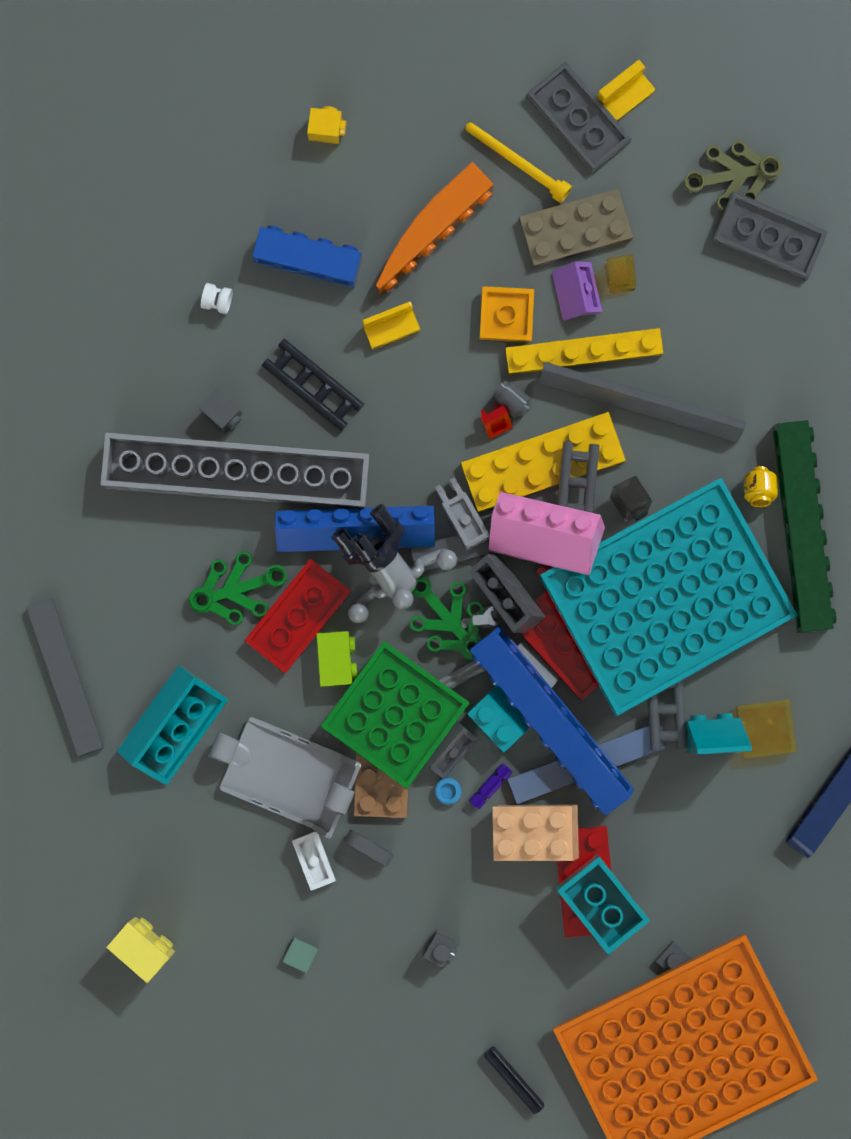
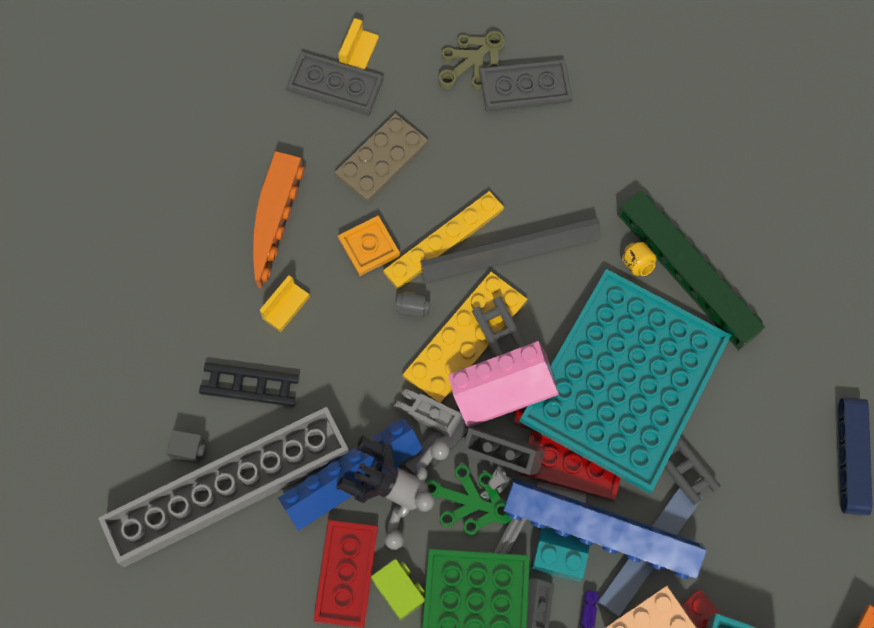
camera: 30 degrees left, 15 degrees down
(213, 299) = (129, 366): white wheel -> none
(233, 589) = (280, 585): green plant -> none
(307, 256) = (187, 290): blue brick -> none
(326, 125) = (146, 189): yellow brick -> none
(496, 421) = (410, 327): red tile -> none
(557, 188) = (351, 137): yellow piece -> none
(577, 290) = (410, 199): medium lavender panel -> none
(620, 274) = (435, 169): clear yellow brick -> none
(631, 499) = (550, 323): clear smoke brick -> none
(716, 735) = (737, 460): teal slope -> none
(768, 728) = (767, 434): clear yellow plate -> none

